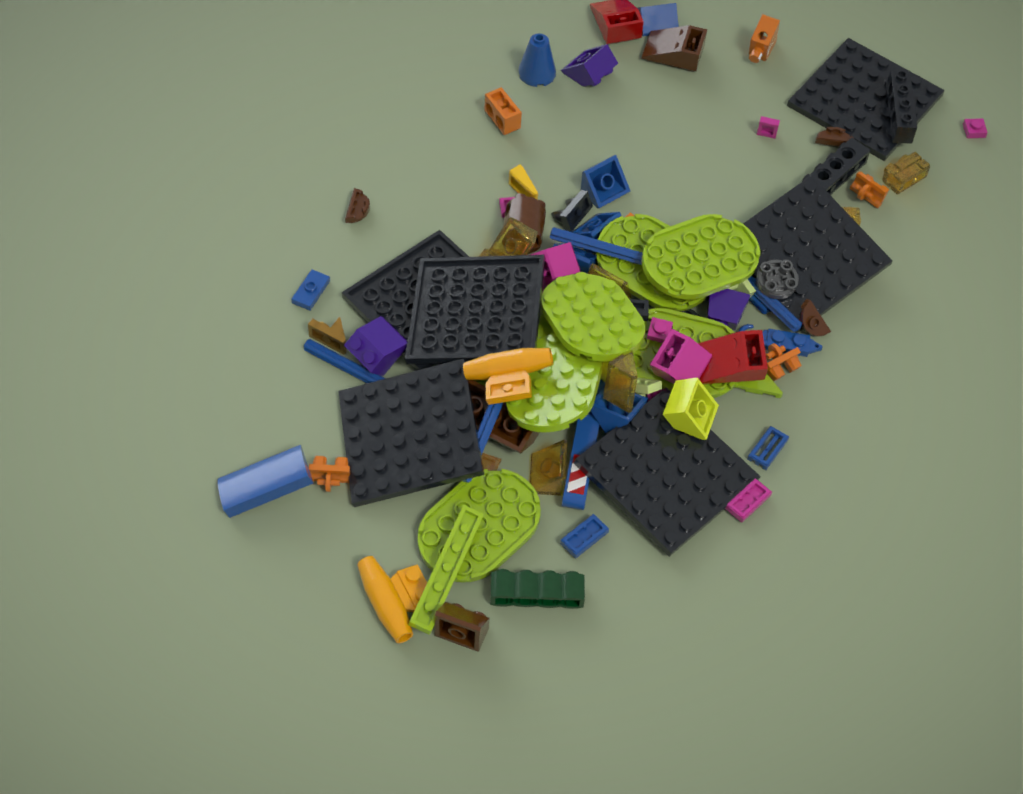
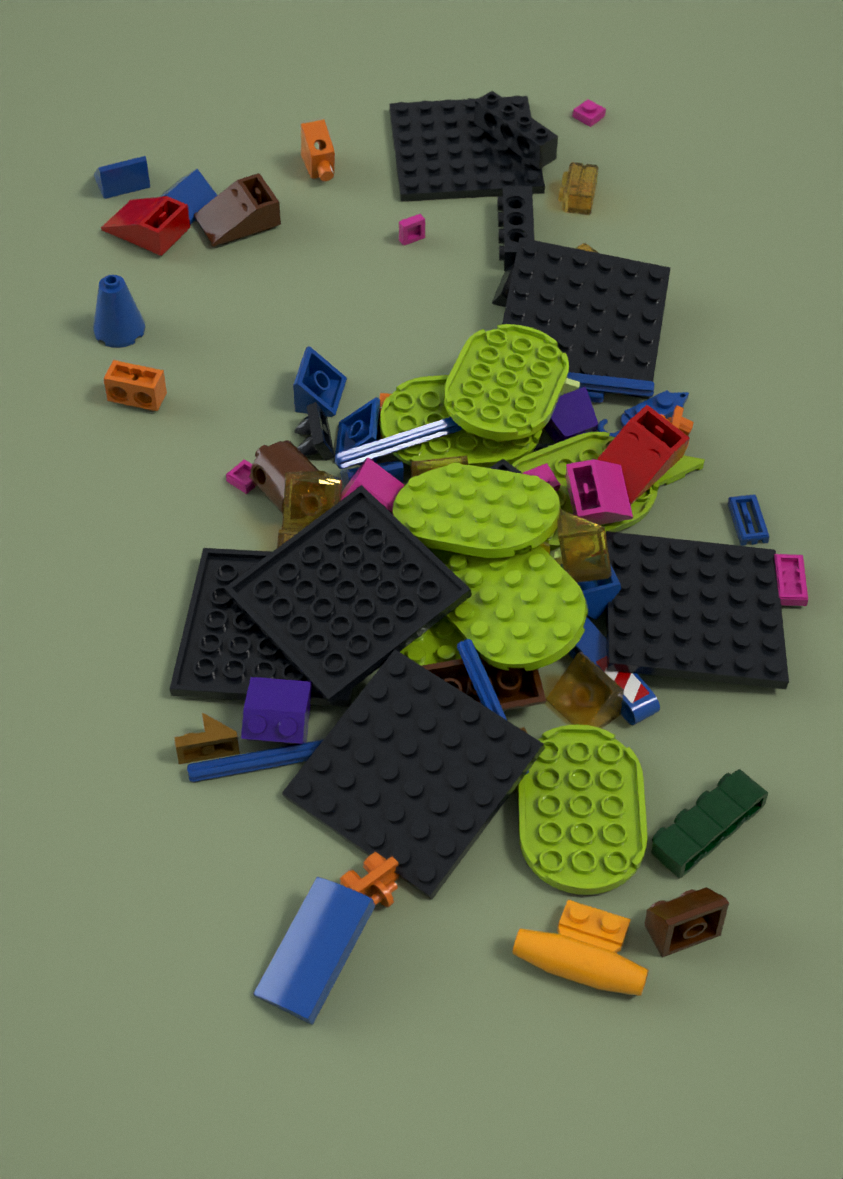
camera: 40 degrees left, 5 degrees down
(310, 289) = (127, 714): blue plate -> none
(358, 207) = (83, 589): reddish brown plate -> none
(446, 569) = (612, 877): lime plate -> none
(508, 372) = (465, 624): light orange plate -> none
(521, 182) = (232, 442): yellow slope -> none
(584, 536) = (689, 734): blue plate -> none
(591, 66) = (172, 284): dark purple slope -> none
(691, 408) = (656, 529): neon yellow slope -> none
(777, 279) = (591, 355): dark grey tile -> none
(812, 320) = (657, 372): reddish brown plate -> none
(832, 136) = (480, 199): reddish brown plate -> none
(869, 189) = (566, 224): orange hips -> none

